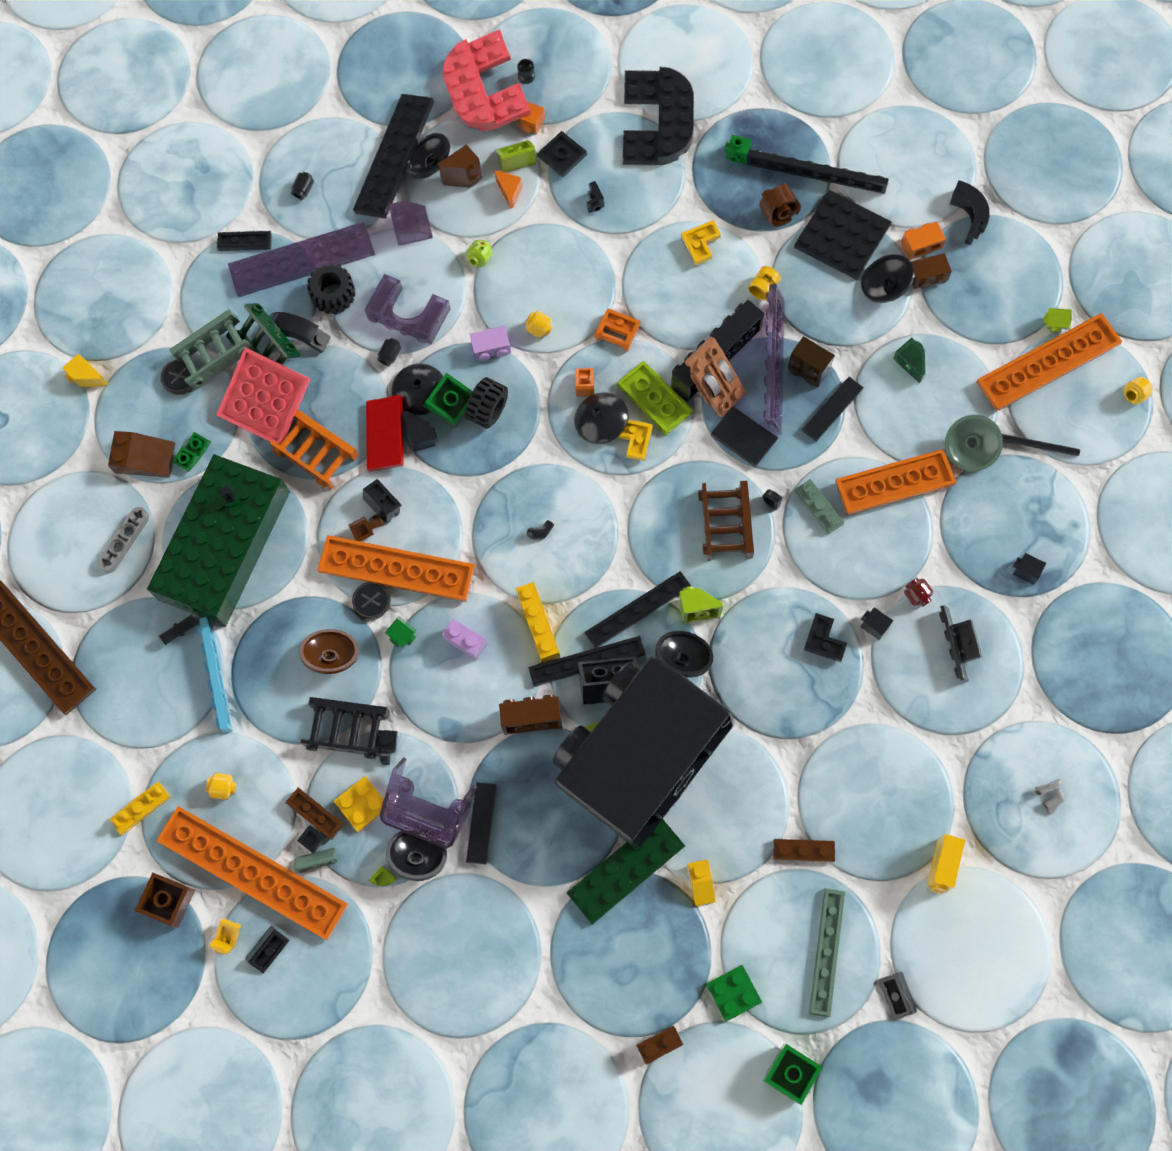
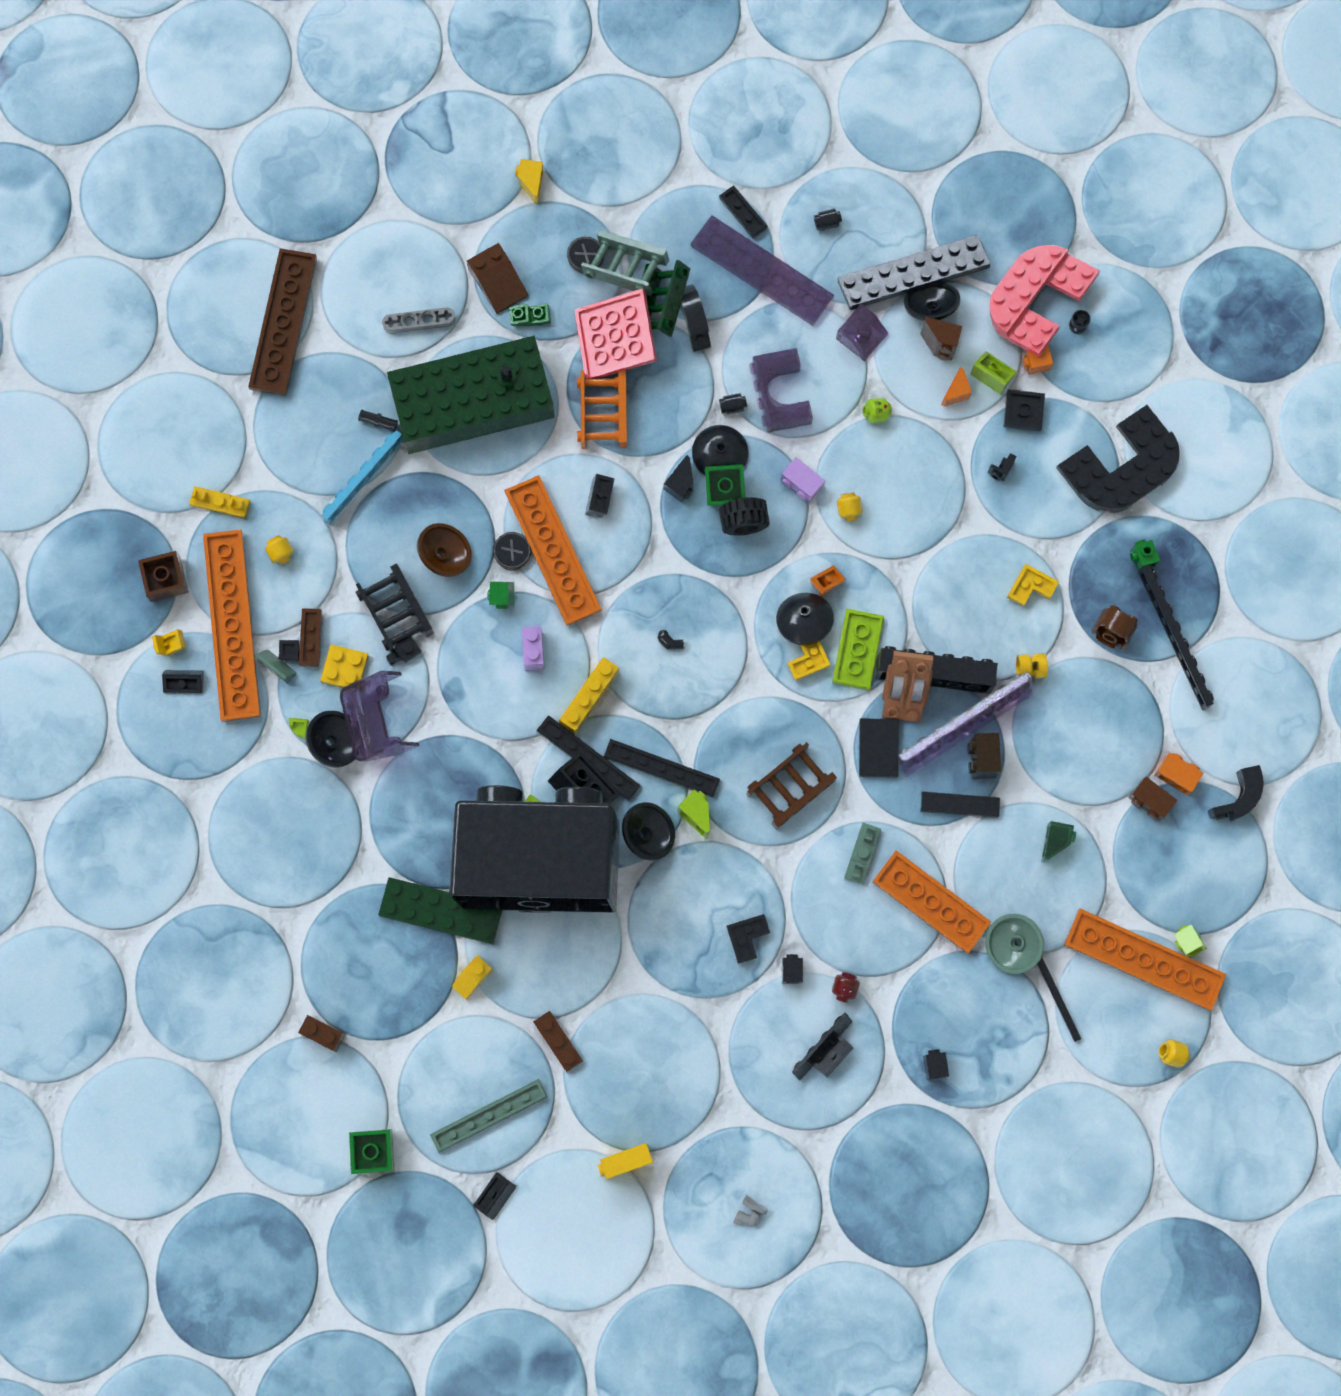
camera: 45 degrees right, 5 degrees up
(328, 276) = (755, 301): black tyre -> none
(362, 528) = (566, 499): reddish brown plate -> none
(384, 433) = (659, 454): red tile -> none
(481, 823) = (396, 771): black tile -> none
(530, 714) = (508, 745): reddish brown brick -> none
(619, 324) = (901, 572): orange plate -> none
(733, 993) = (404, 1064): green plate -> none
(772, 499) = (838, 810): black tile -> none
(842, 234) = (1132, 701): black plate -> none
(887, 278) = (1115, 768): black dish -> none

